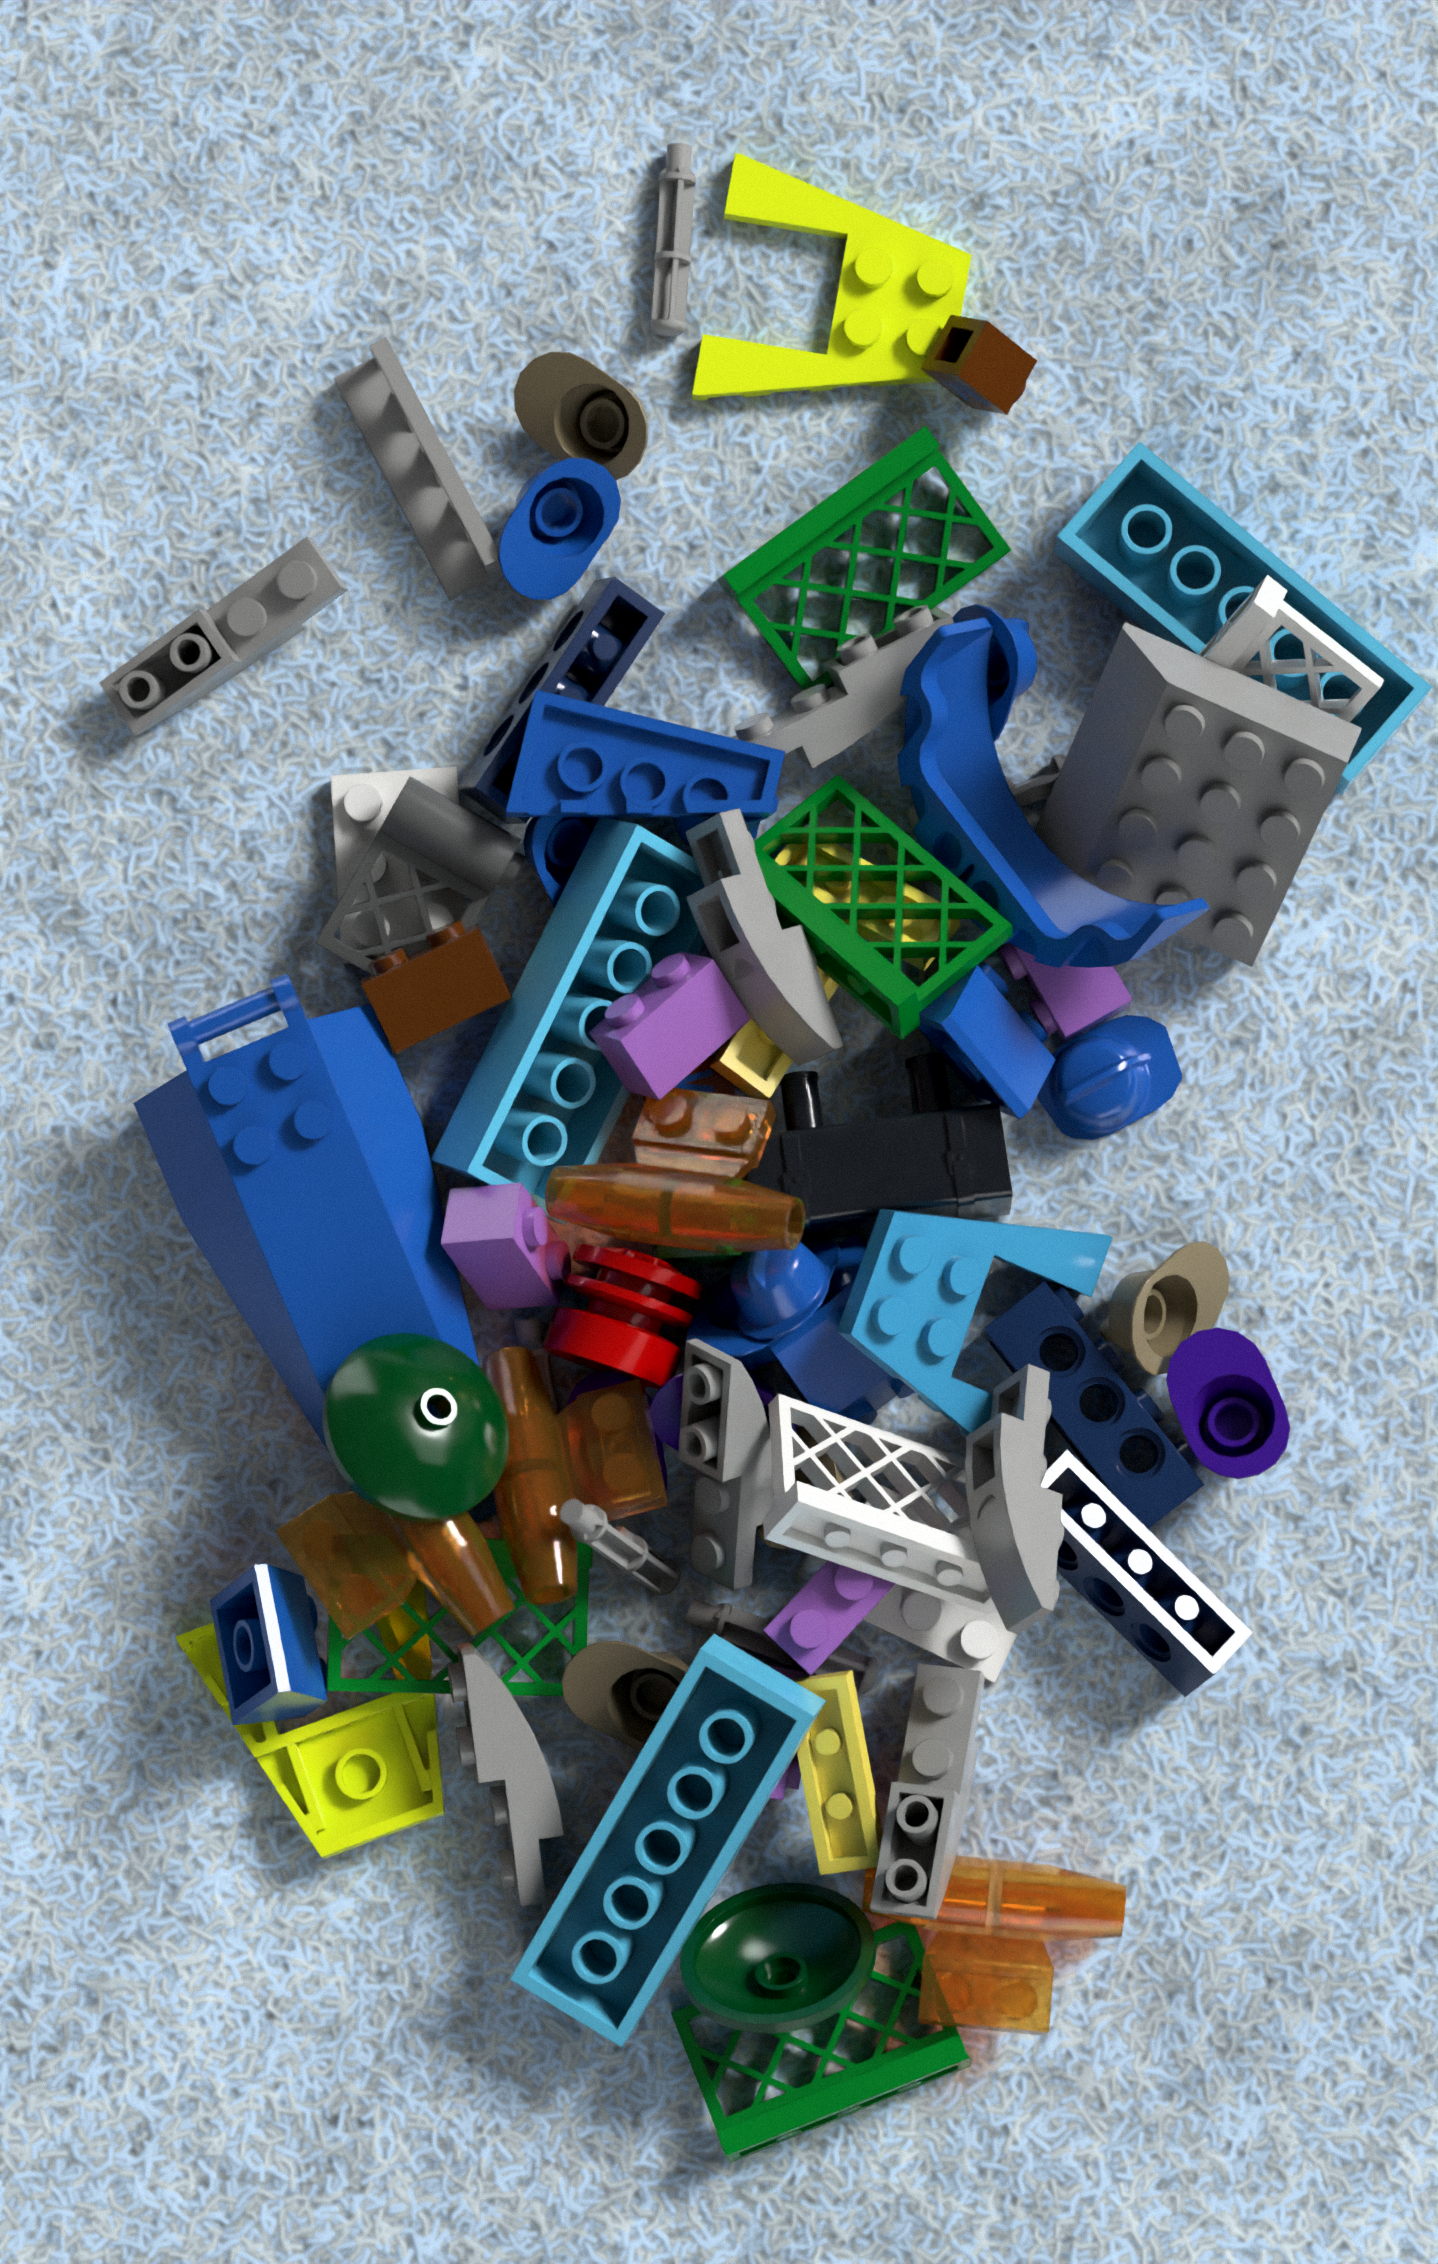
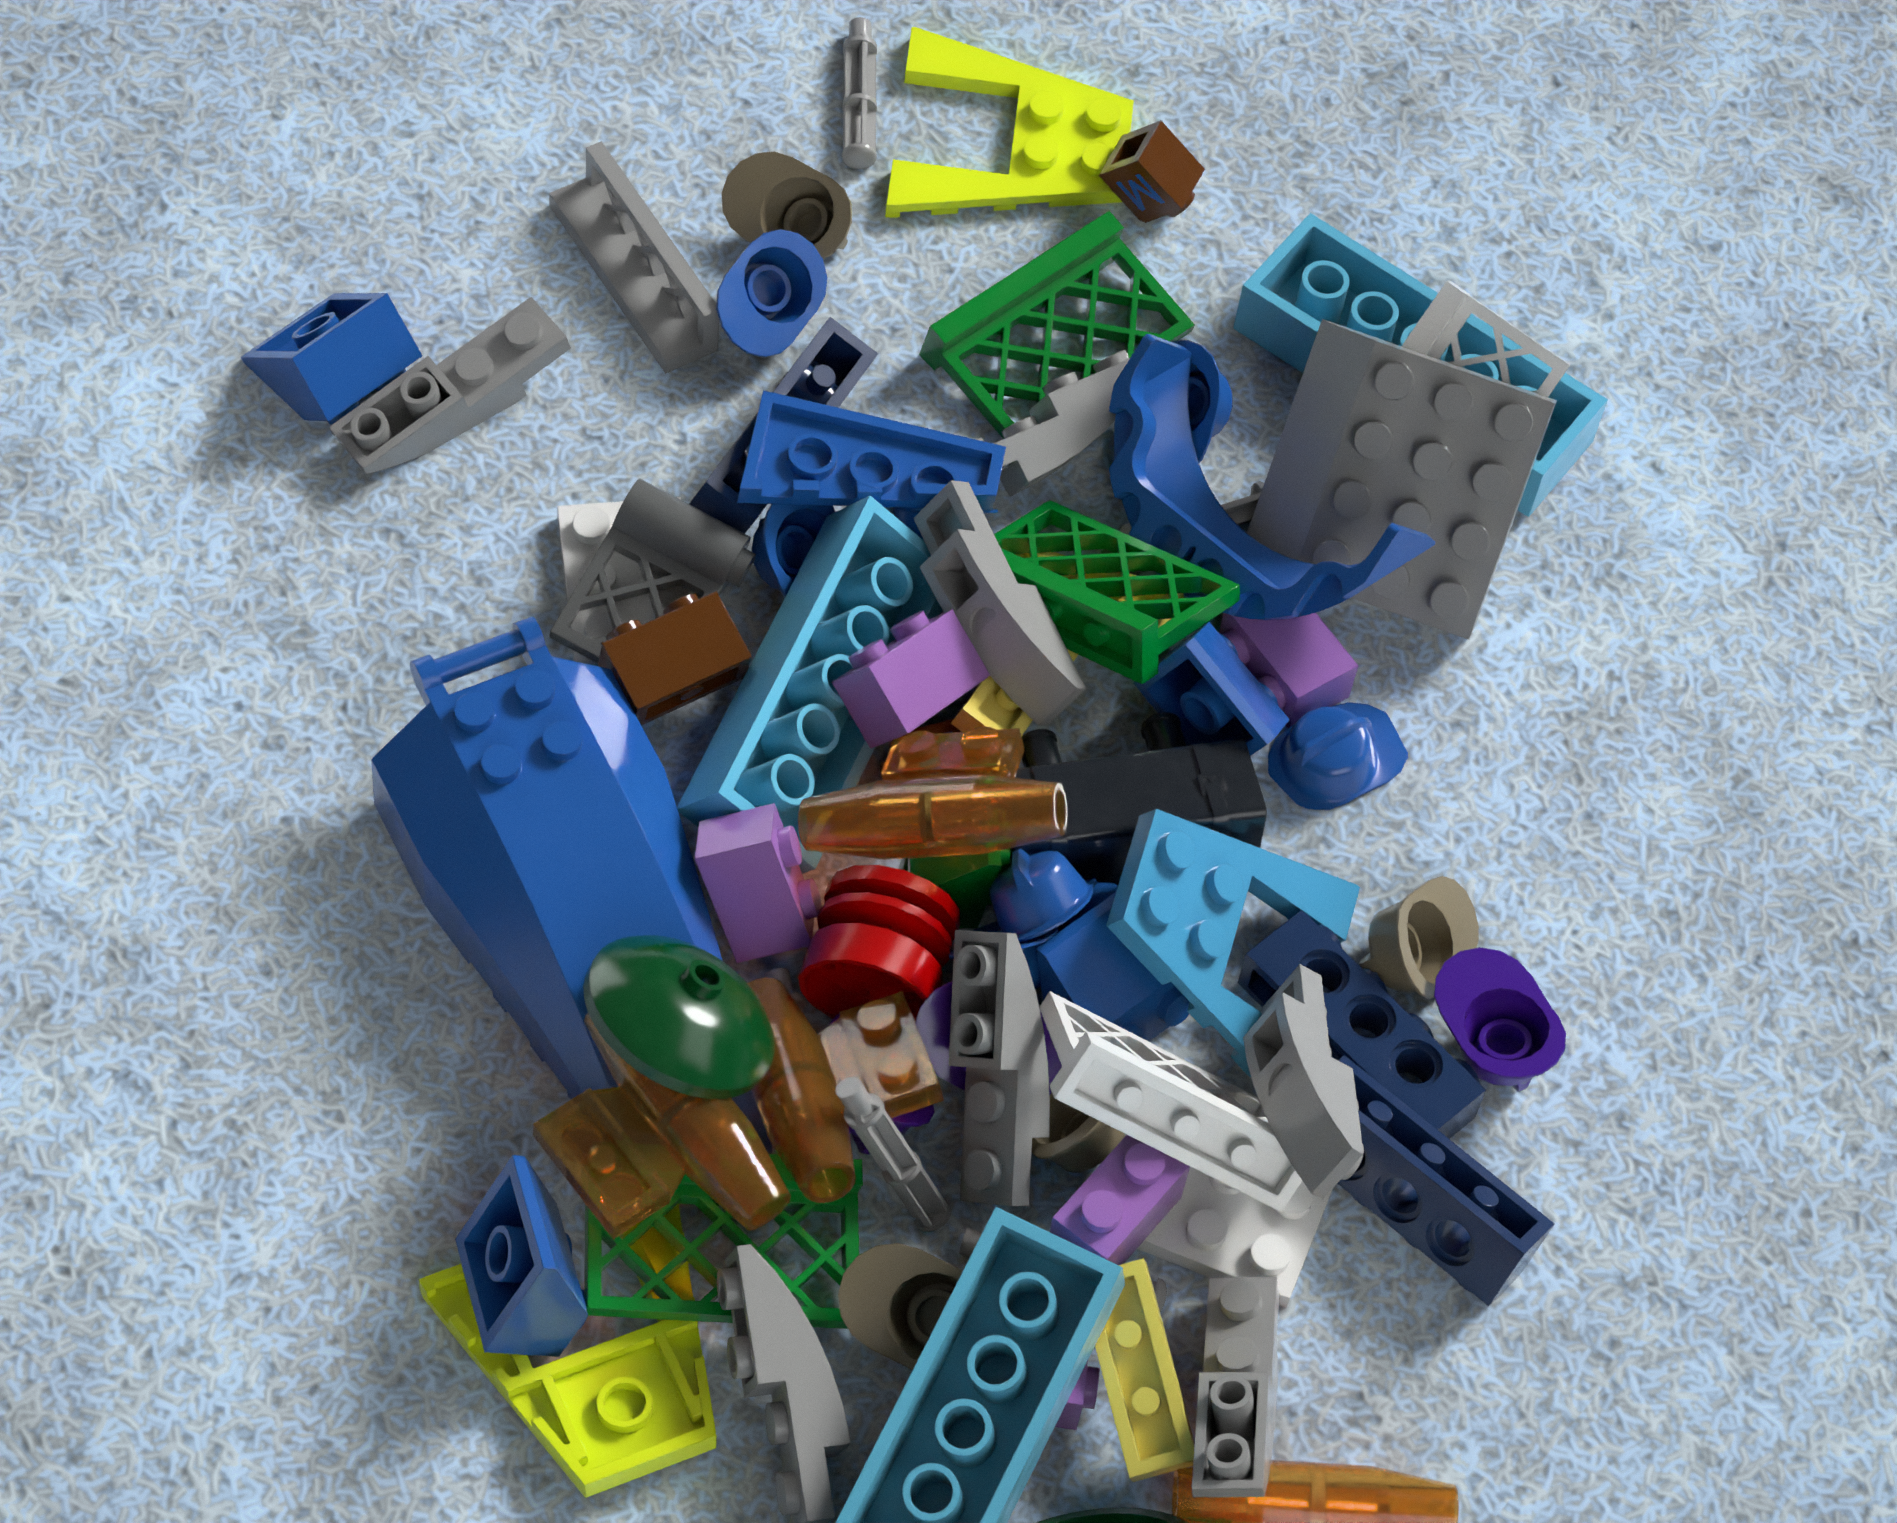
camera: 15 degrees left, 25 degrees down
(104, 588) = (335, 355): none -> blue slope

